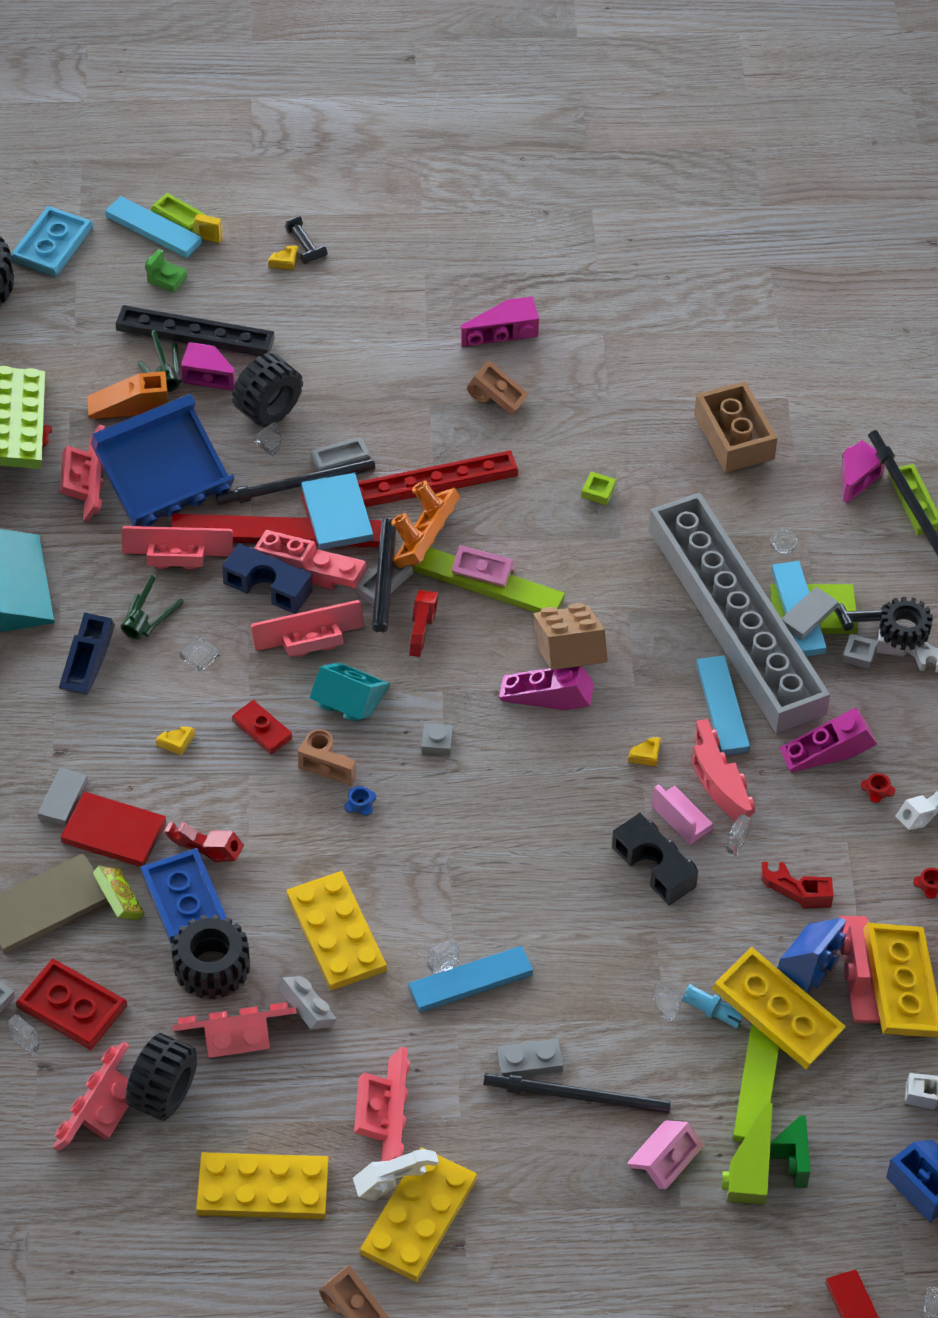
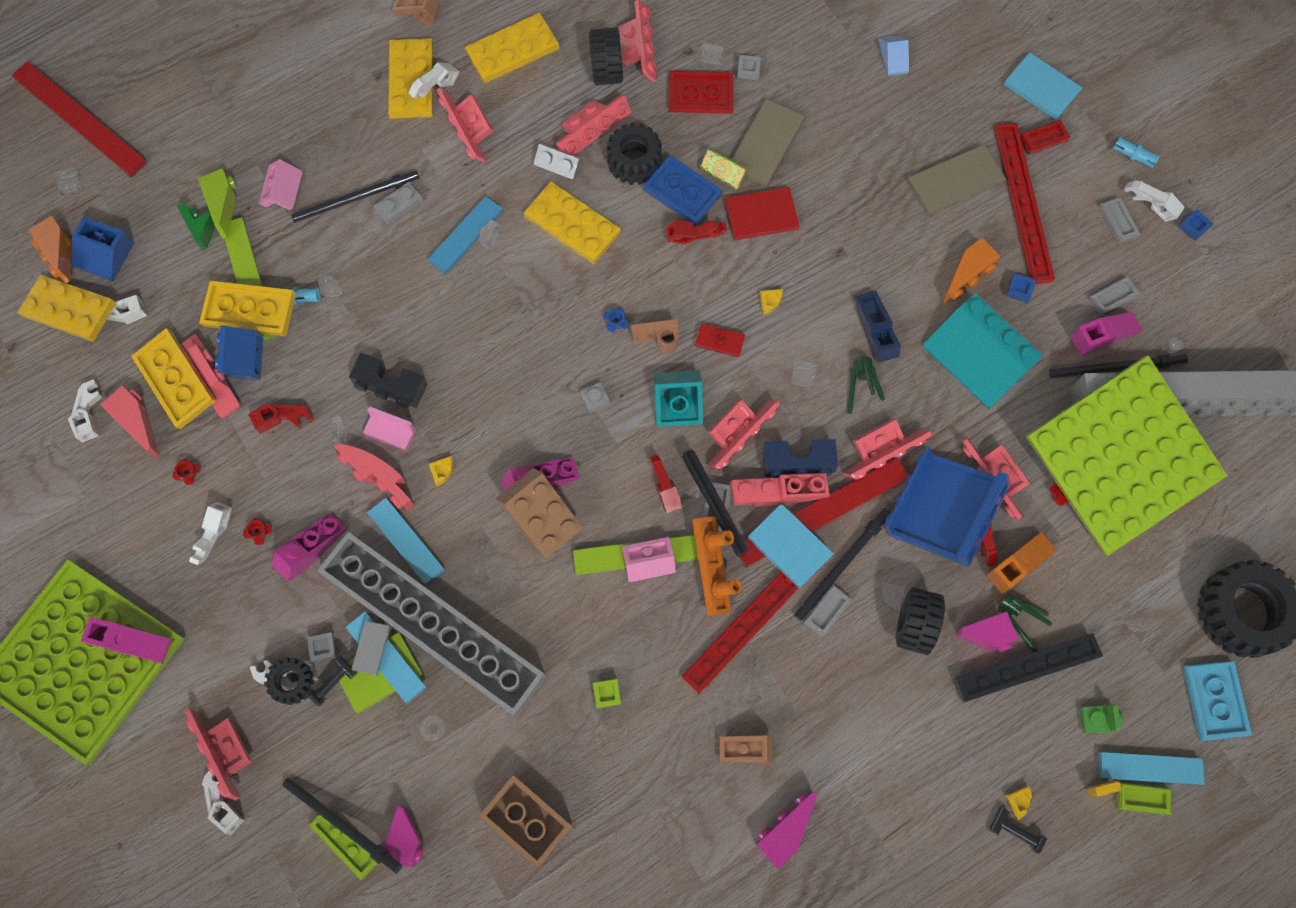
camera: 150 degrees right, 20 degrees up
(62, 797) = (811, 218): light grey tile -> none

